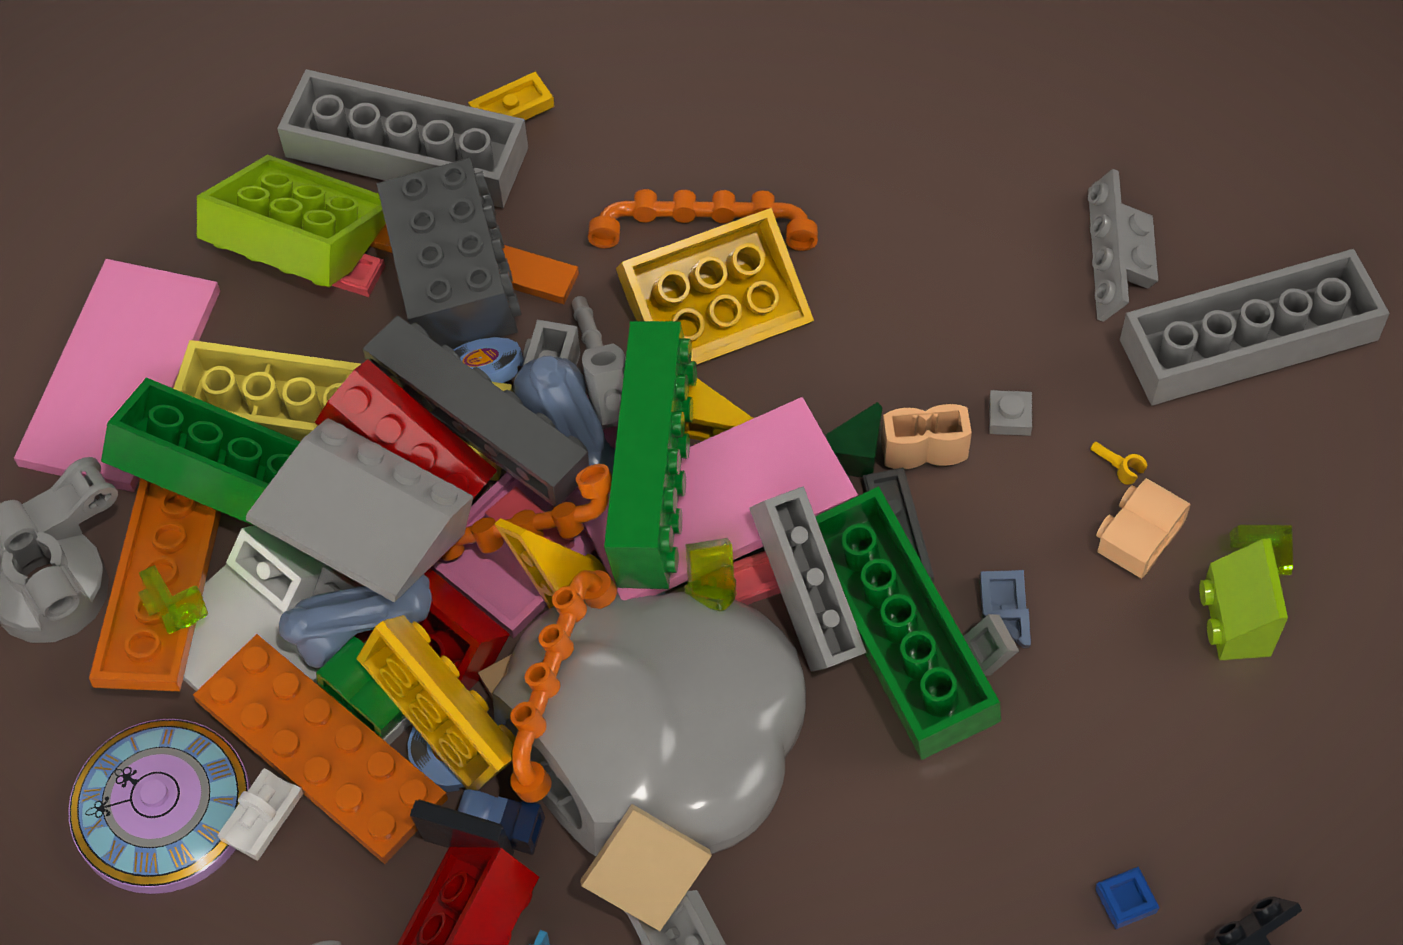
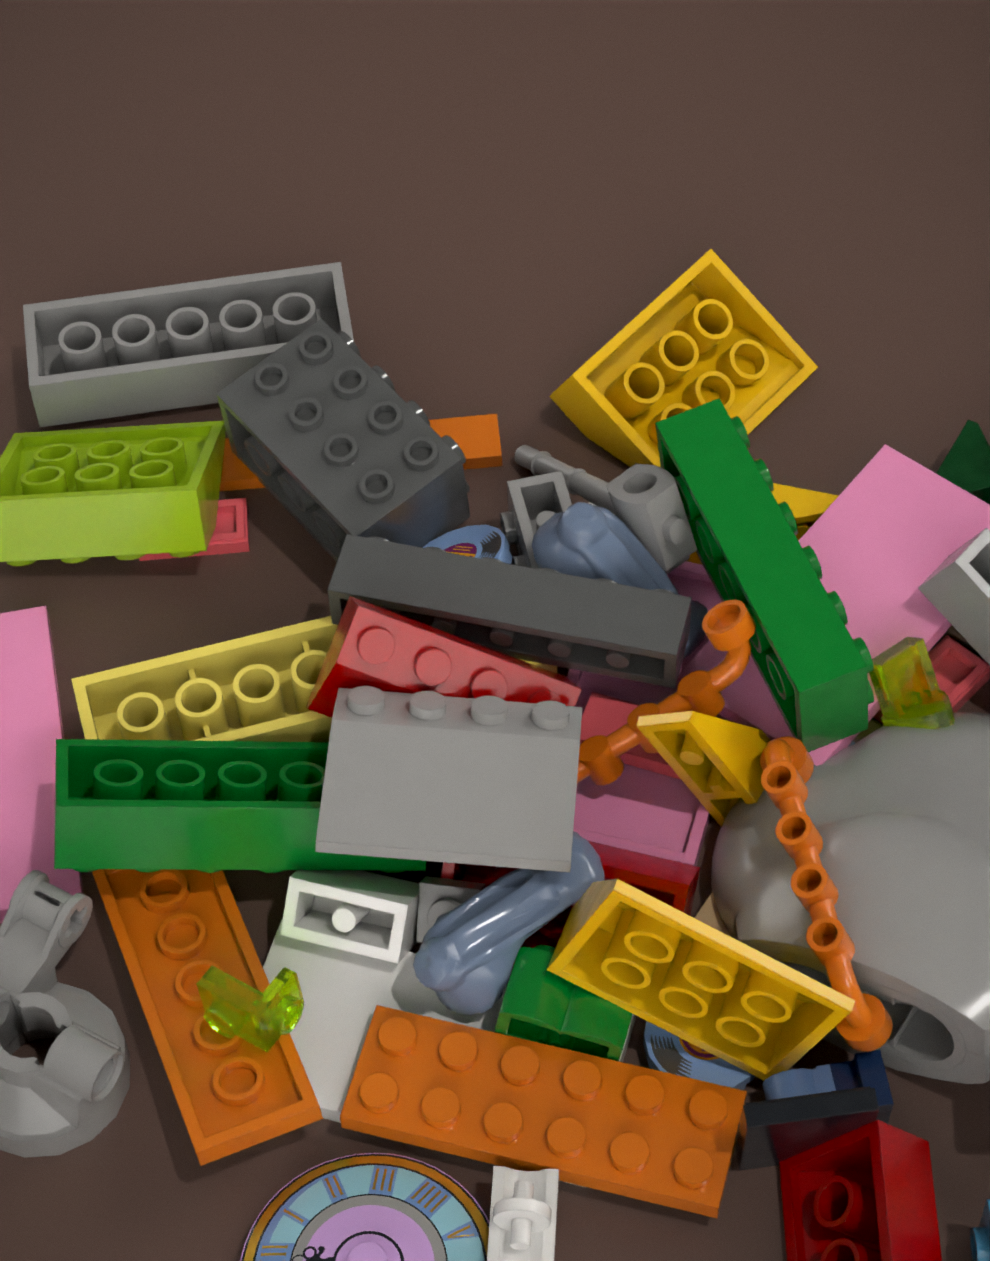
camera: 25 degrees left, 5 degrees down
(517, 99) = (303, 244): yellow plate -> none
(605, 229) = (507, 361): orange bar -> none

